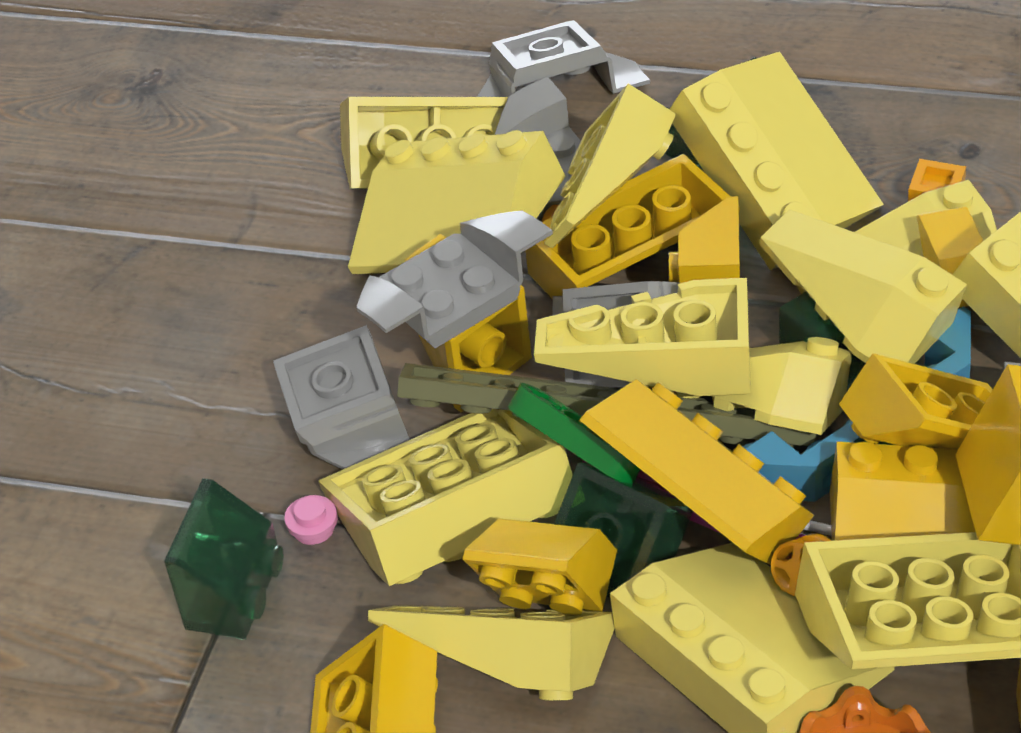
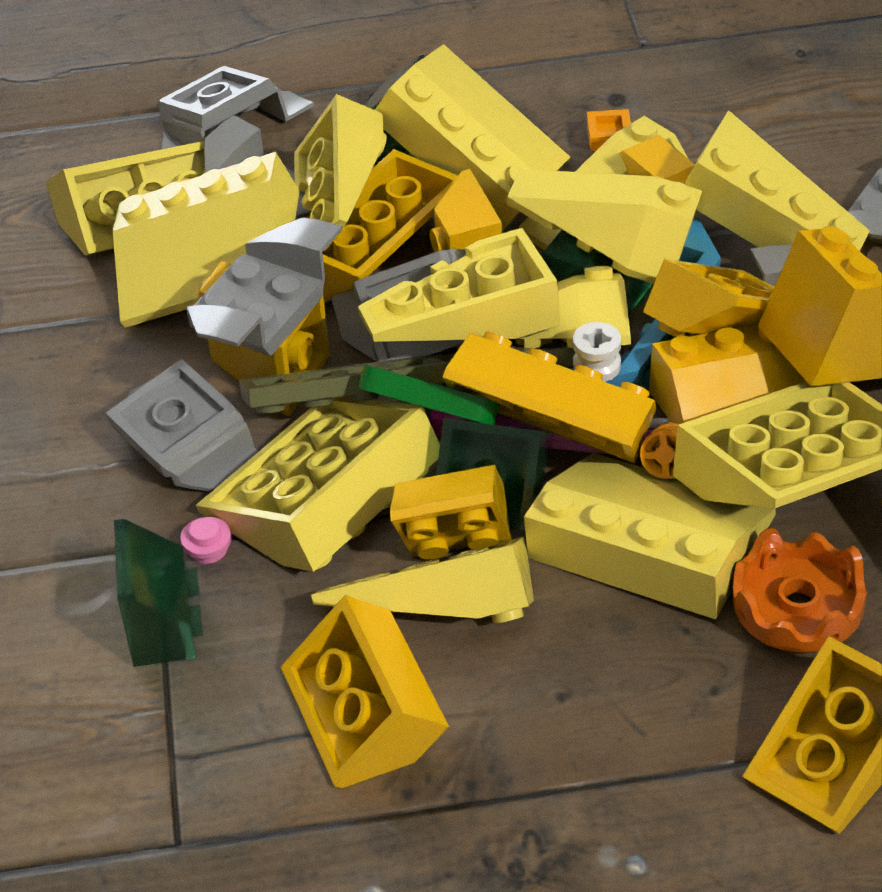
camera: 25 degrees left, 0 degrees up
(775, 433) = (598, 348): none -> white wheel

